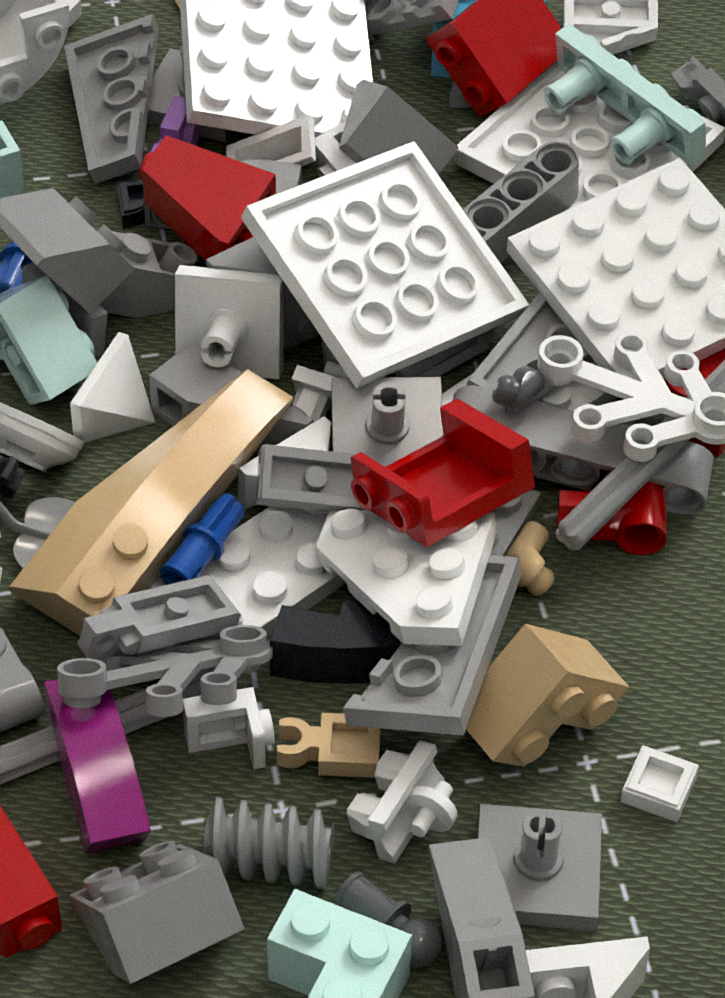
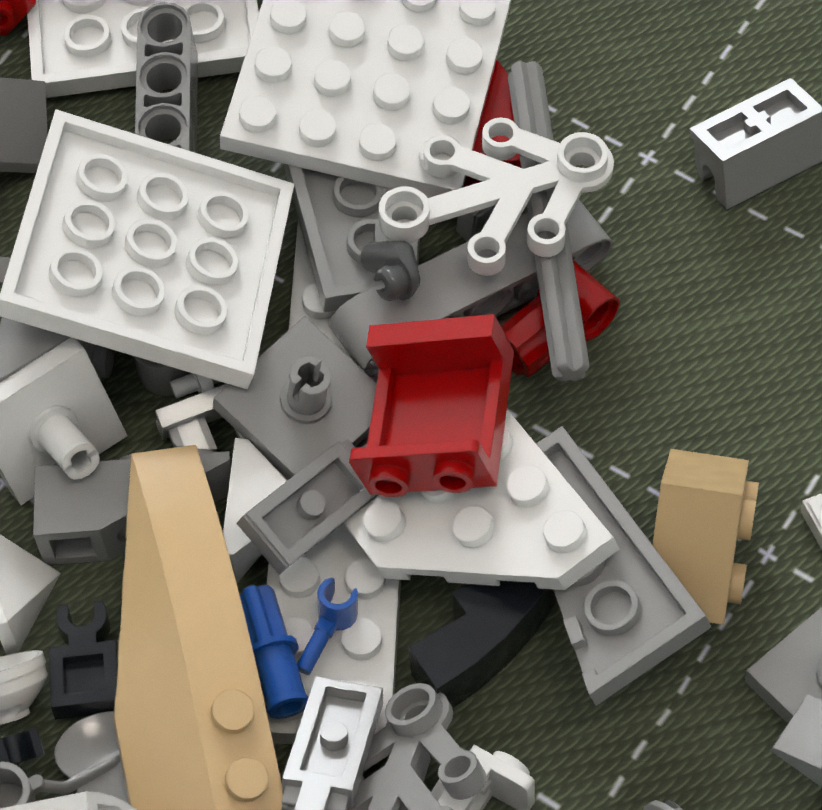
camera: 40 degrees left, 10 degrees up
(94, 466) = (85, 669): none -> black plate
(267, 556) = (331, 619): none -> blue hand
(336, 747) = (577, 730): tan plate -> none
(412, 803) = (675, 700): white hips -> none
(527, 547) = (536, 419): tan arm -> none

